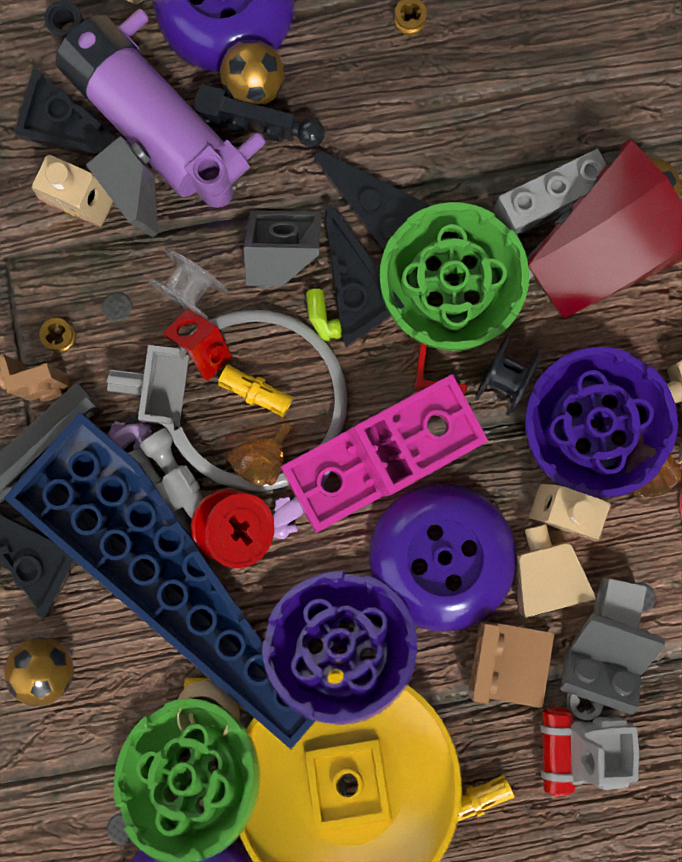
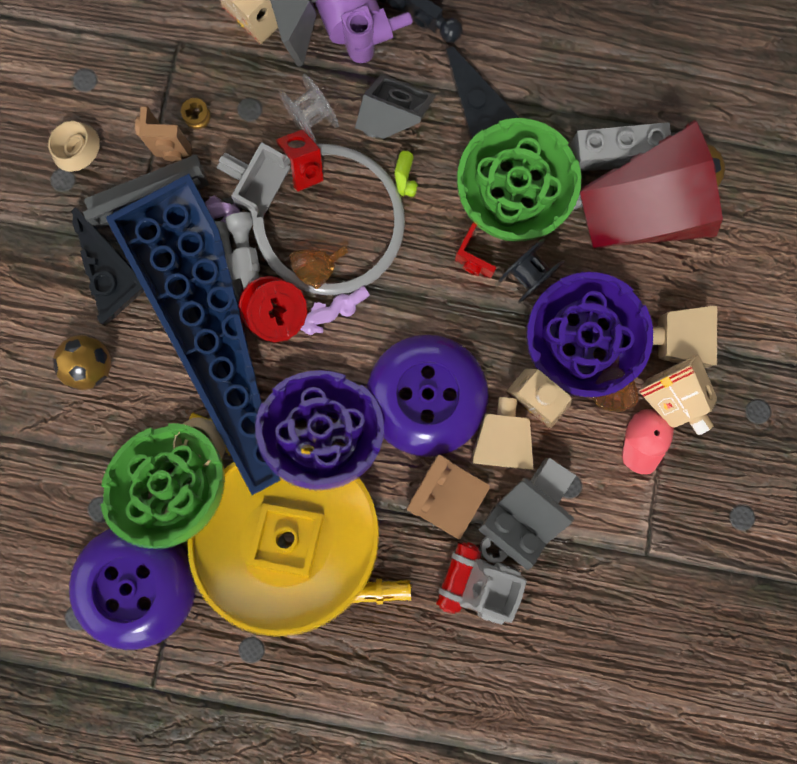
camera: 15 degrees right, 0 degrees up
(255, 390) = (331, 212): yellow pin -> none
(355, 281) = (441, 158): black wing -> none
(384, 453) = (411, 295): dark pink bracket -> none

